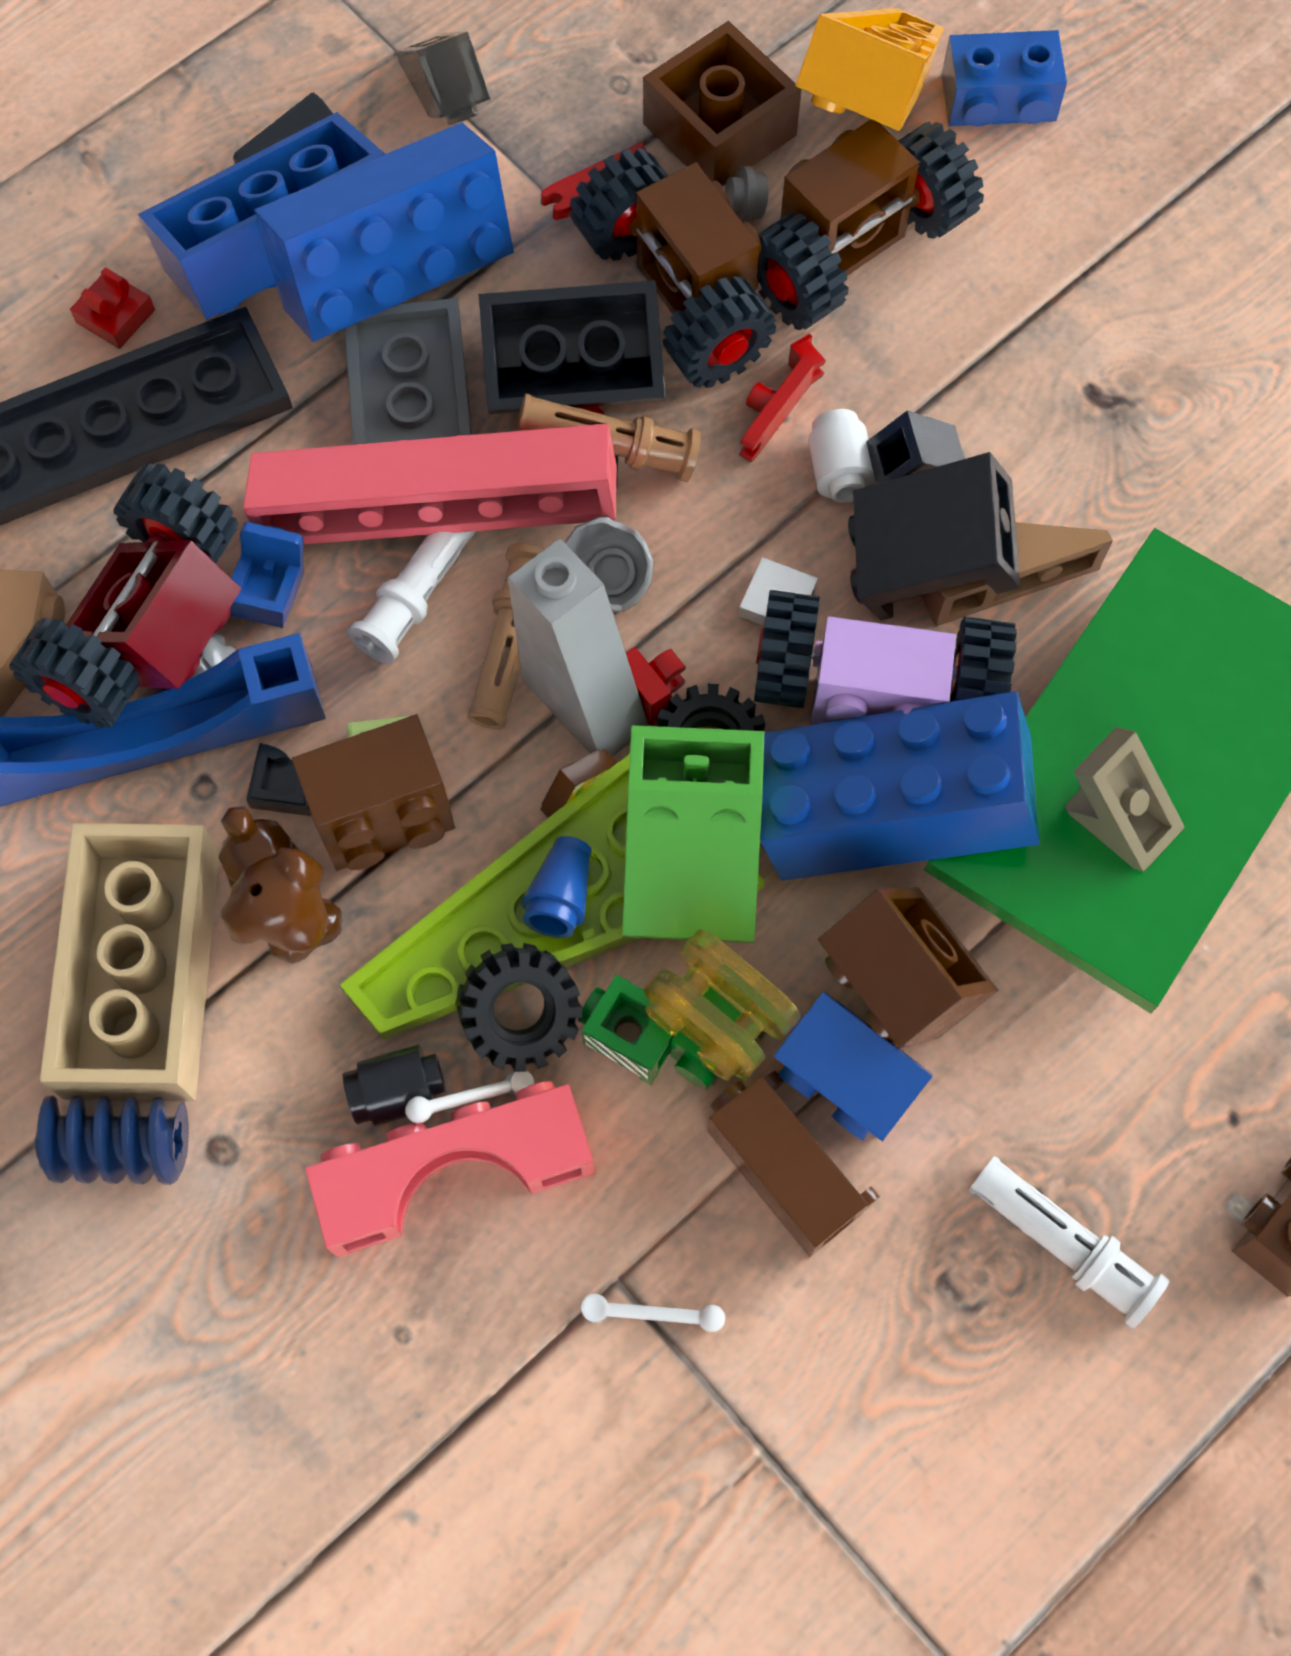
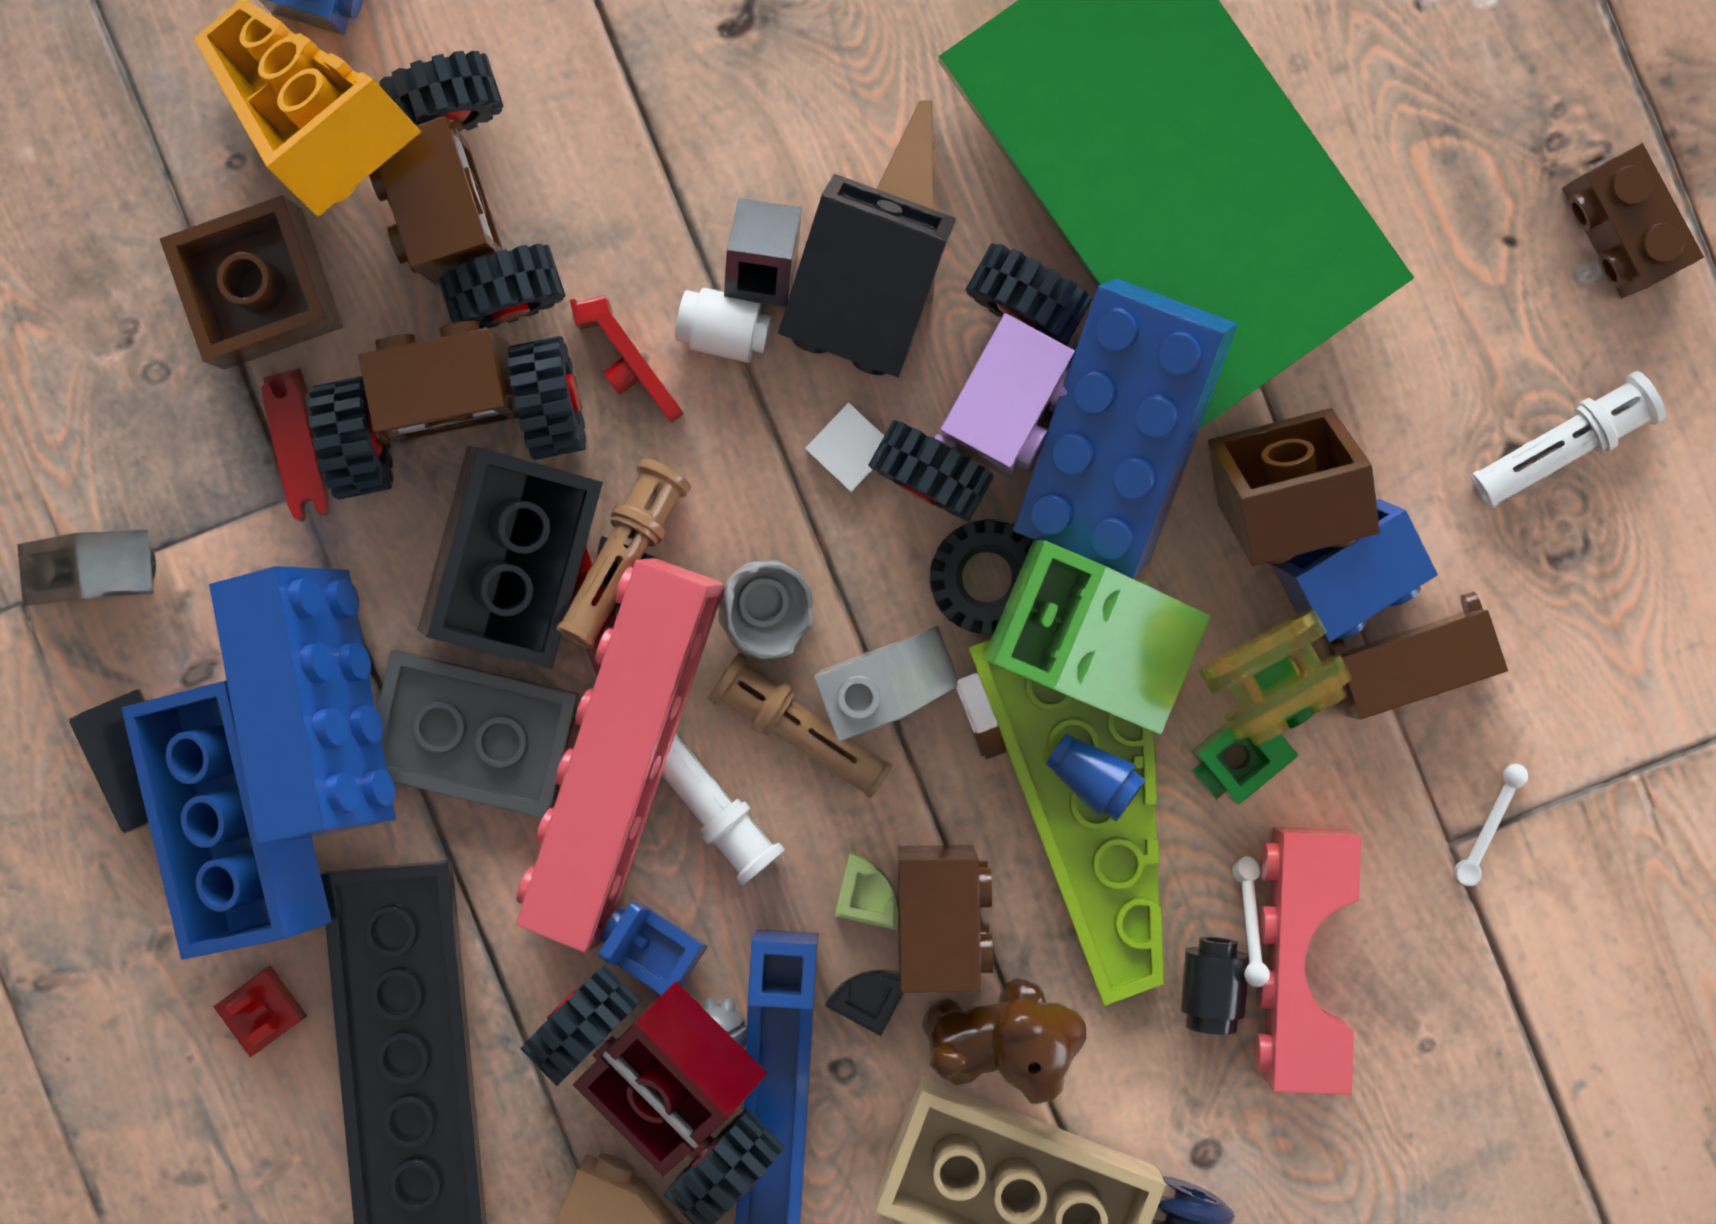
camera: 70 degrees left, 20 degrees up
(530, 1044) = (1219, 851): black tyre -> none
(656, 680) = (905, 613): red tile -> none
(747, 193) = (367, 296): light grey plate -> none
(1124, 800) = (1226, 225): dark tan slope -> none

